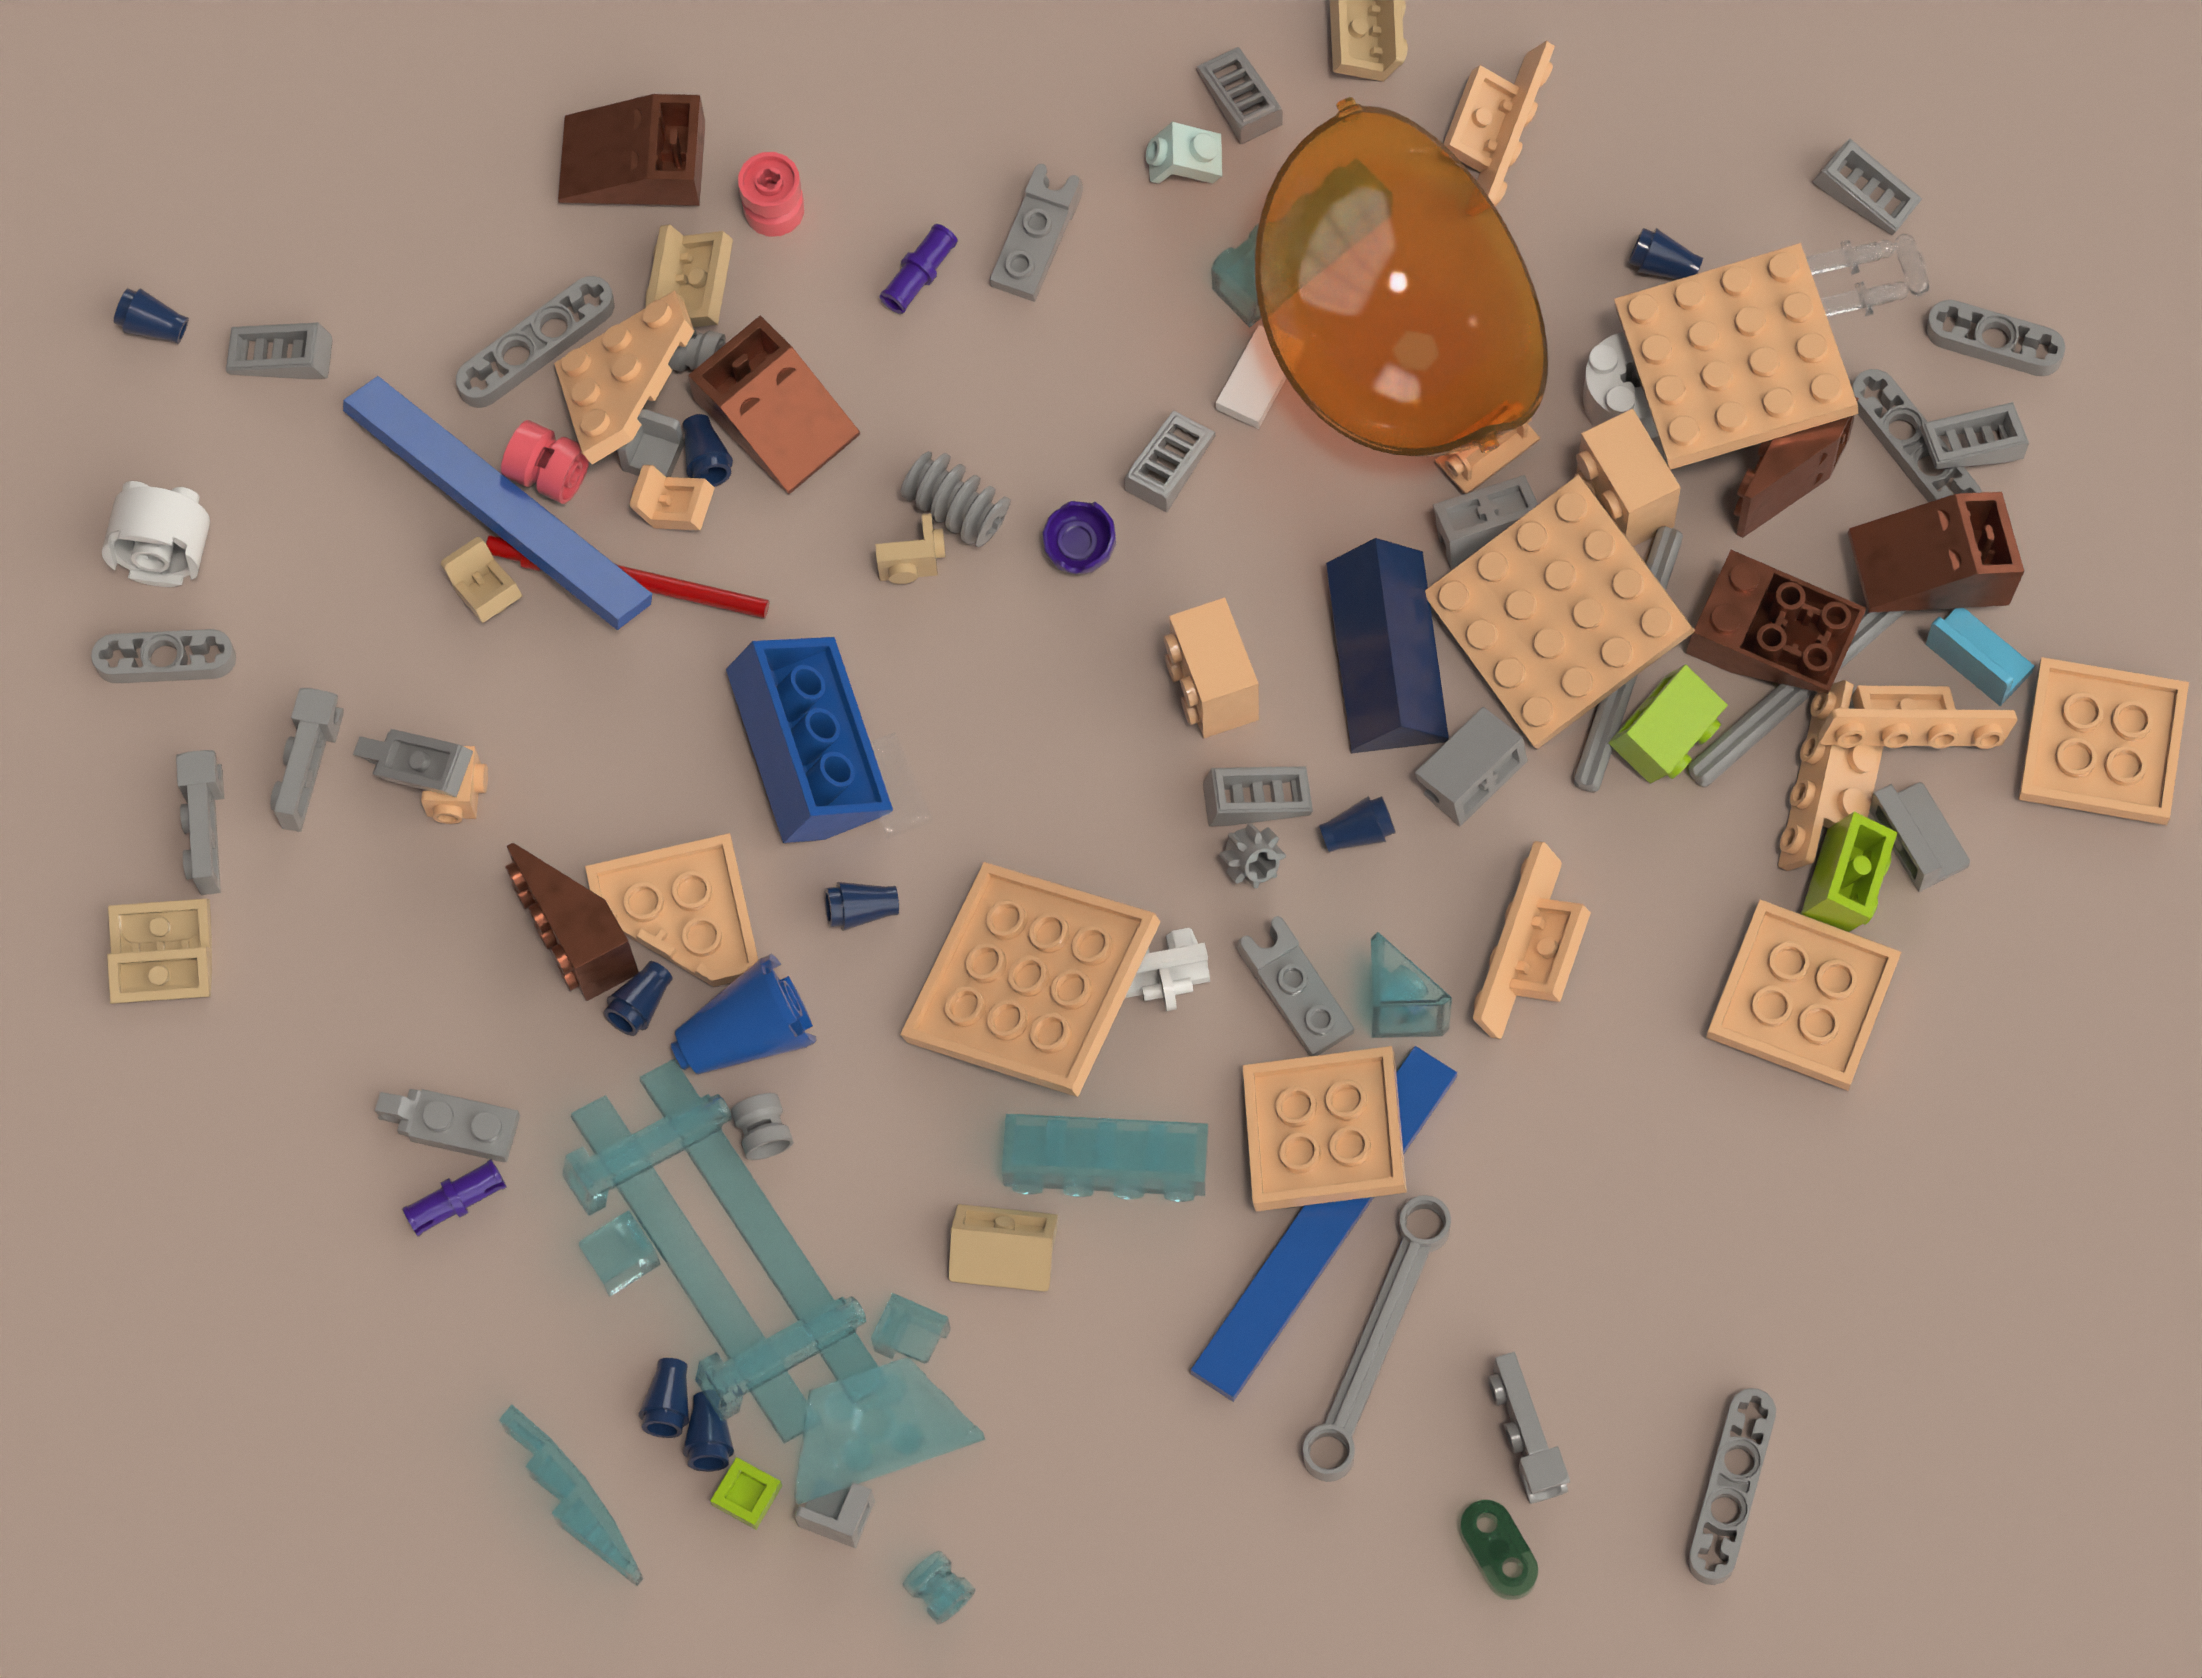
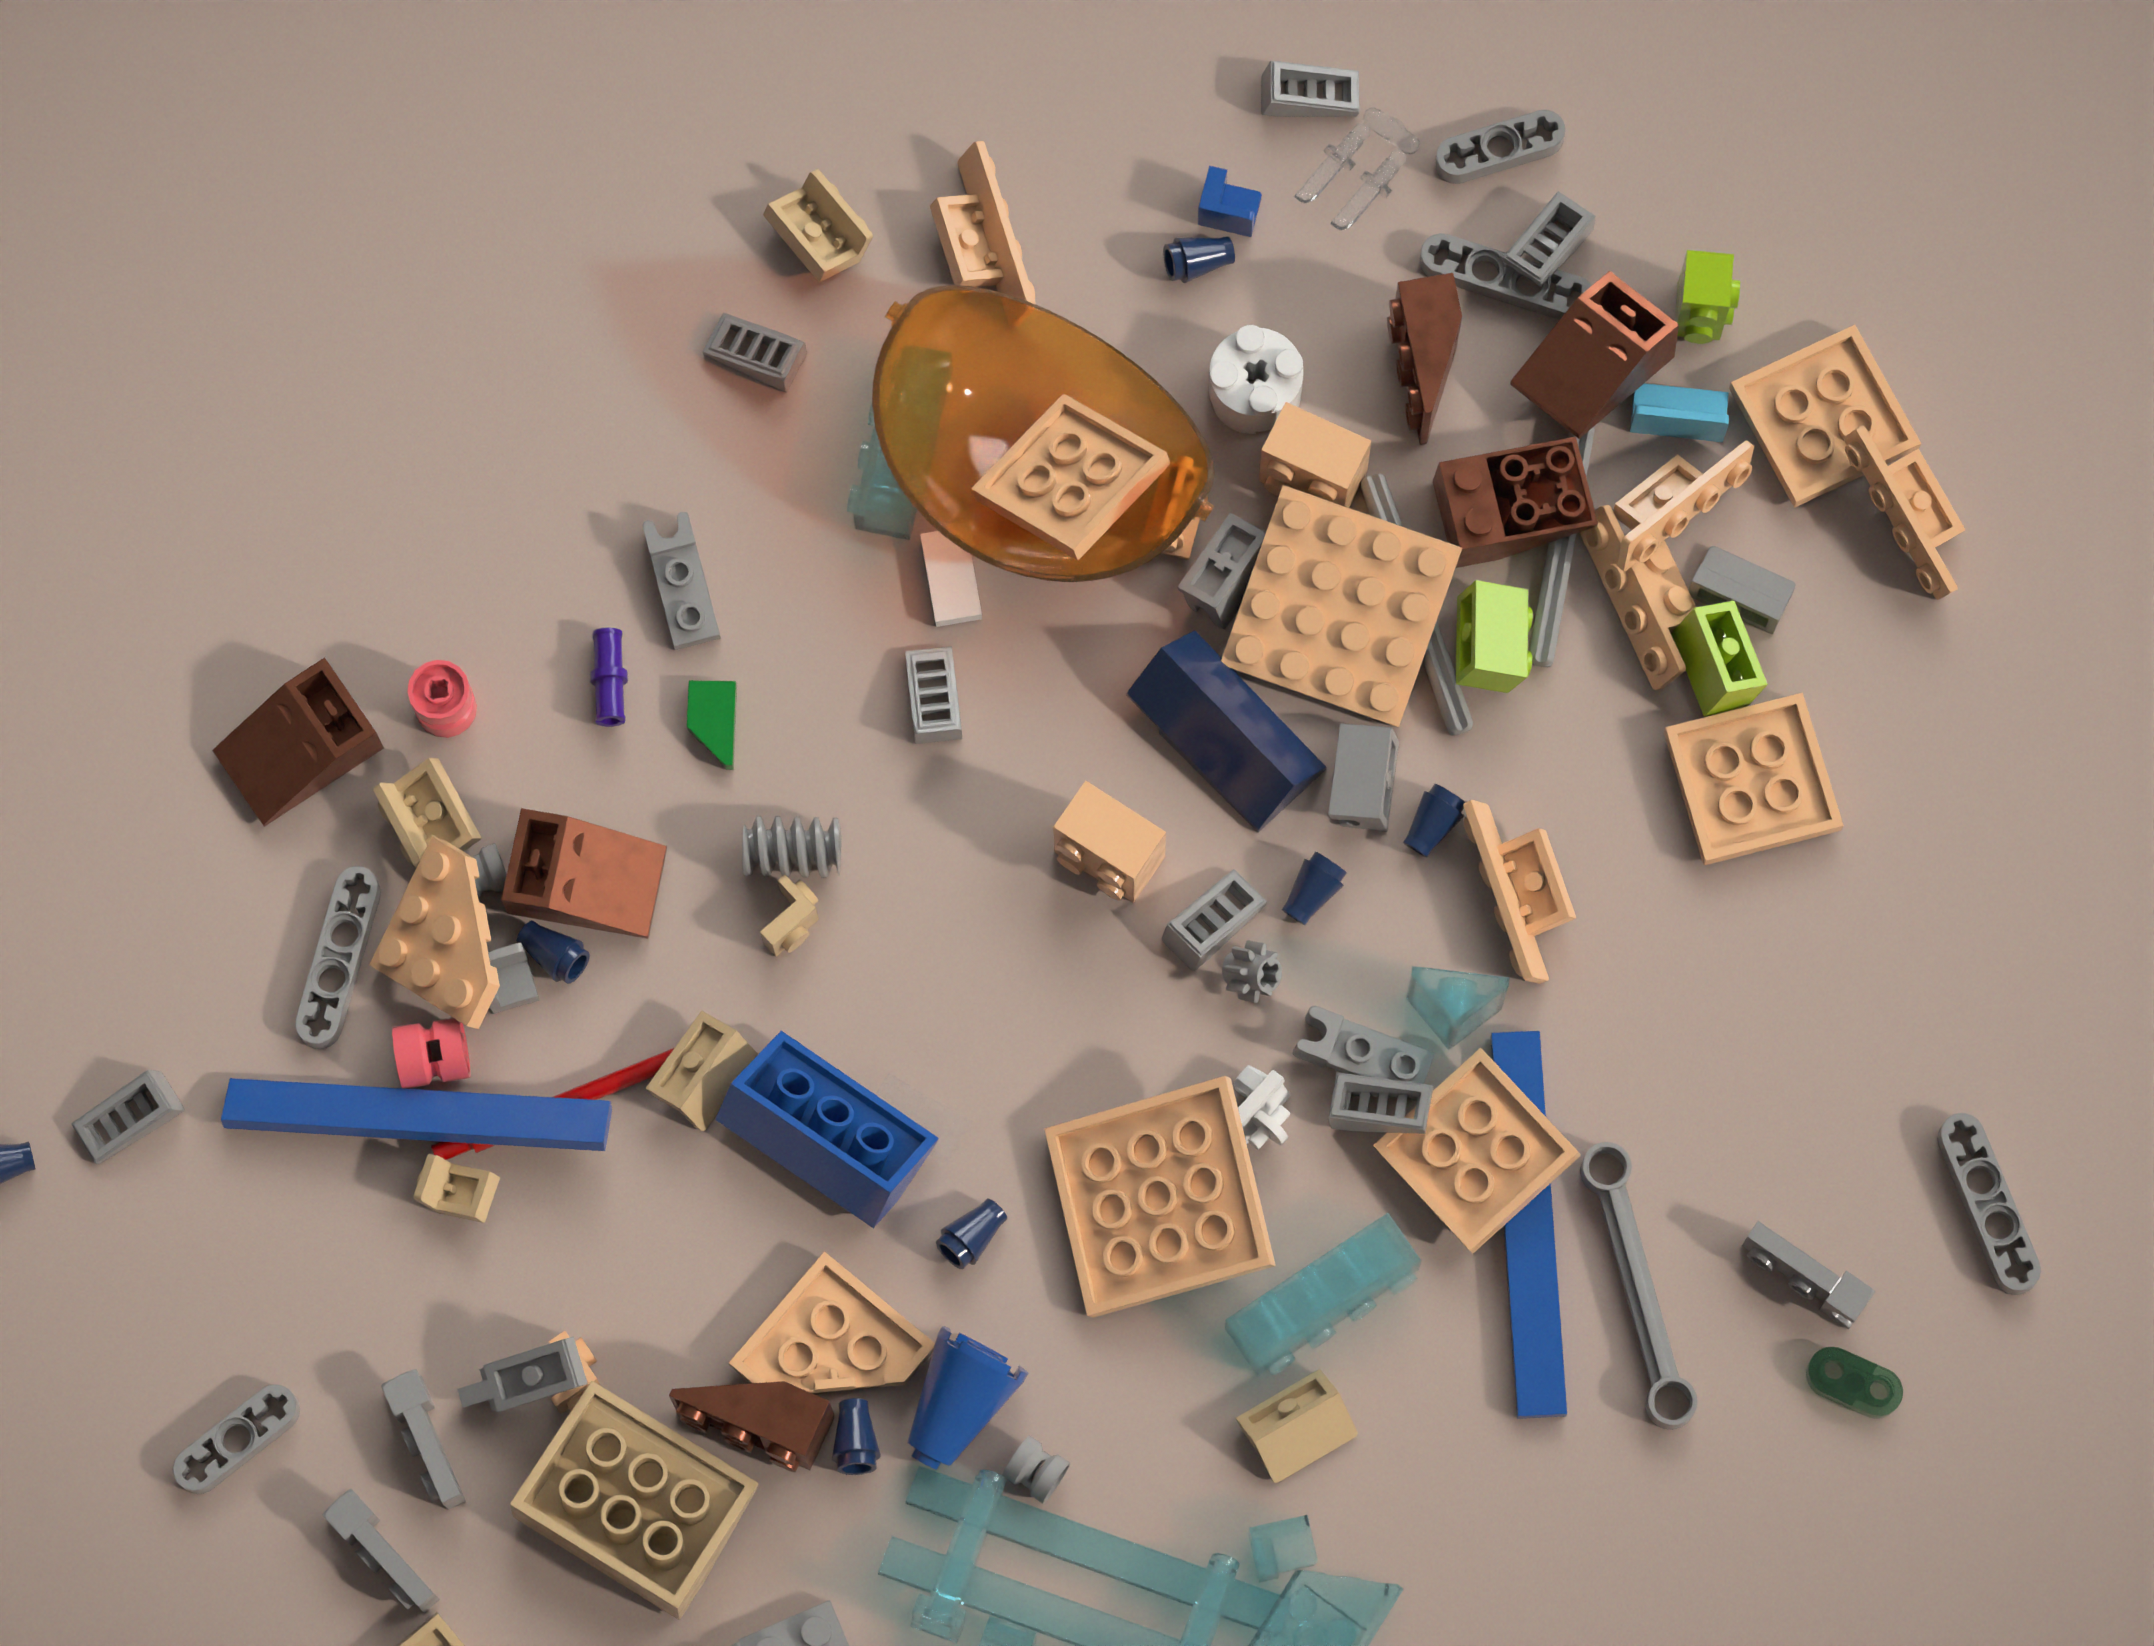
camera: 40 degrees left, 5 degrees up
(156, 534) = (156, 1343): white brick -> none
(424, 917) = (634, 1499): none -> tan slope
(671, 500) = (559, 1011): light nougat bracket -> none
(744, 616) = (702, 1069): none -> tan panel
(978, 357) = (713, 717): none -> green tile
(1079, 537) = (915, 809): dark purple hair -> none
(1185, 153) = (750, 432): light aqua bracket -> none
(1257, 1003) = (1363, 1086): none -> light grey slope
(1410, 353) = (1070, 476): none -> light nougat plate
(1503, 840) = (1434, 819): none -> dark blue cone
(1721, 232) = (1226, 205): none -> blue panel
(1735, 356) = (1332, 303): light nougat plate -> none
(2070, 568) = (1706, 296): none -> lime brick
(2123, 863) = (1913, 504): none -> light nougat bracket

